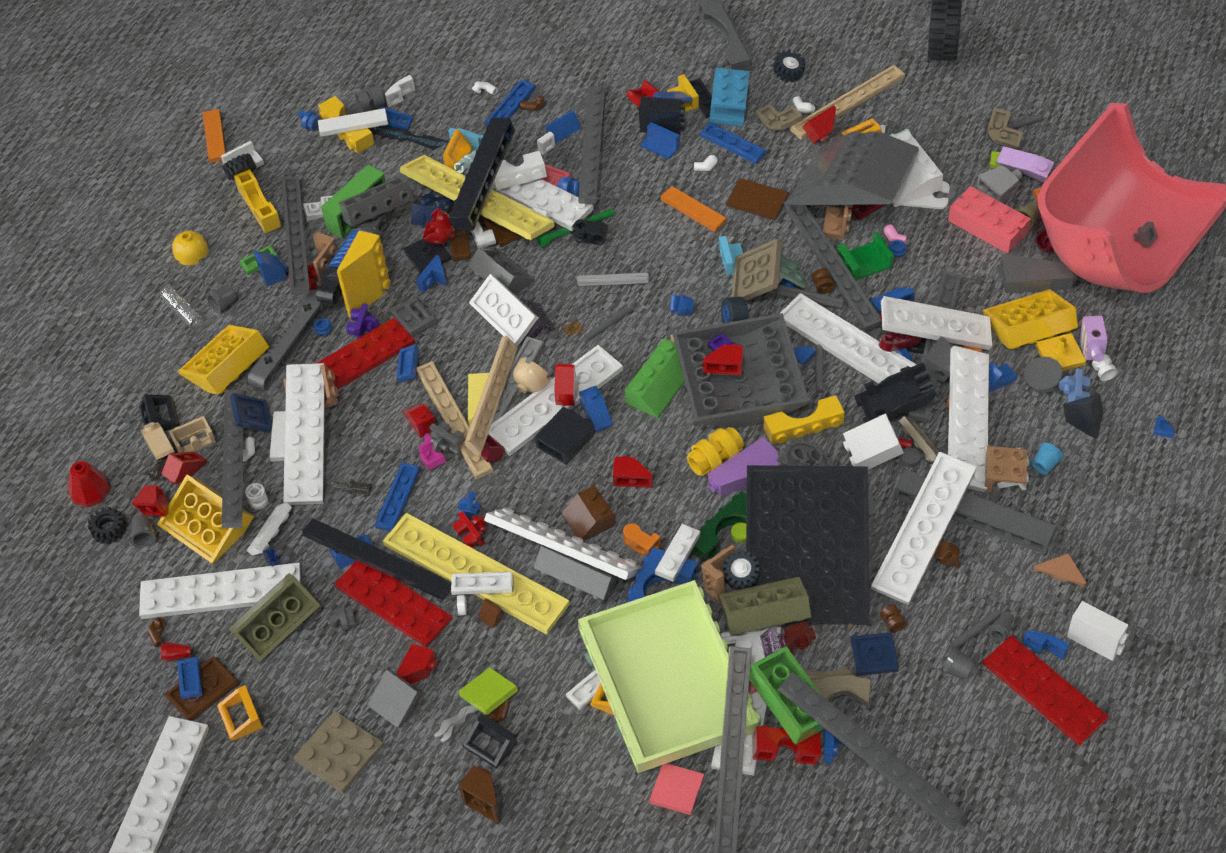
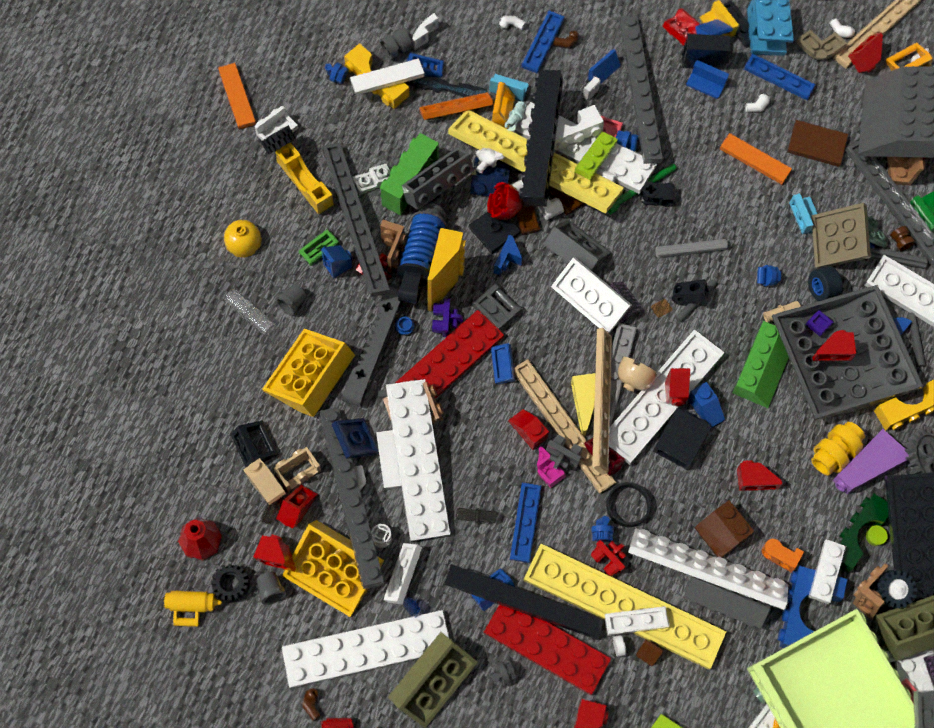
camera: 15 degrees left, 15 degrees up
(64, 537) = (189, 602): none -> yellow piece
(413, 151) = (456, 105): none -> orange tile
(429, 190) = (486, 158): none -> white piece
(500, 472) = (628, 485): none -> black tyre
(533, 193) = (596, 155): none -> lime plate
(602, 312) = (691, 292): none -> black leg

